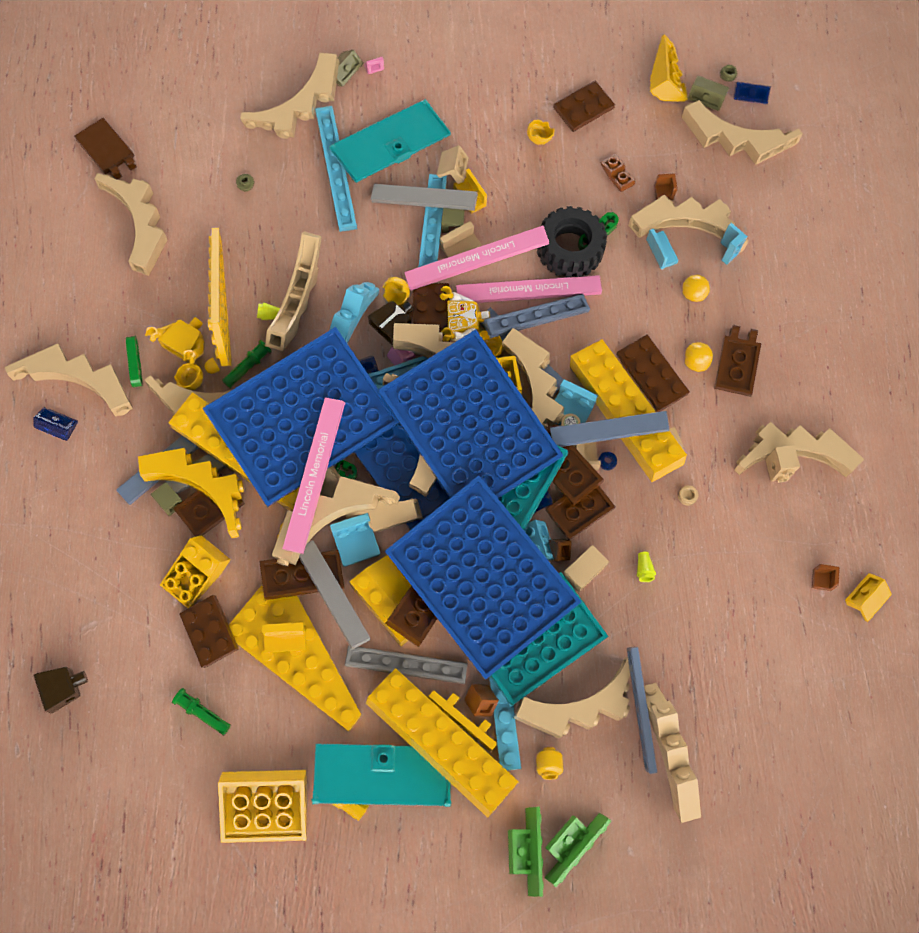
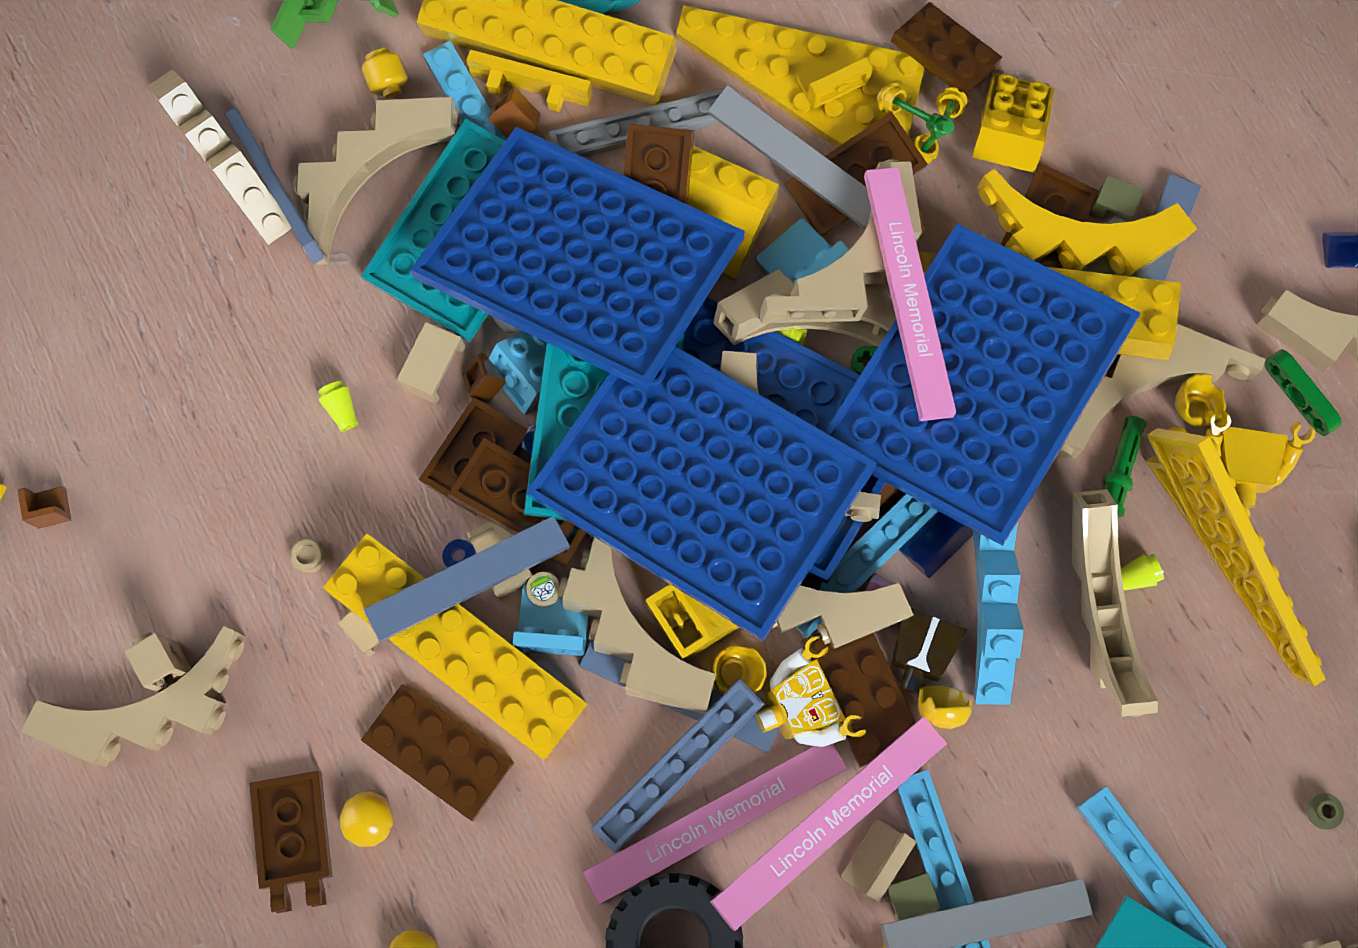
camera: 165 degrees right, 5 degrees up
(252, 578) = (950, 105): none -> yellow plant

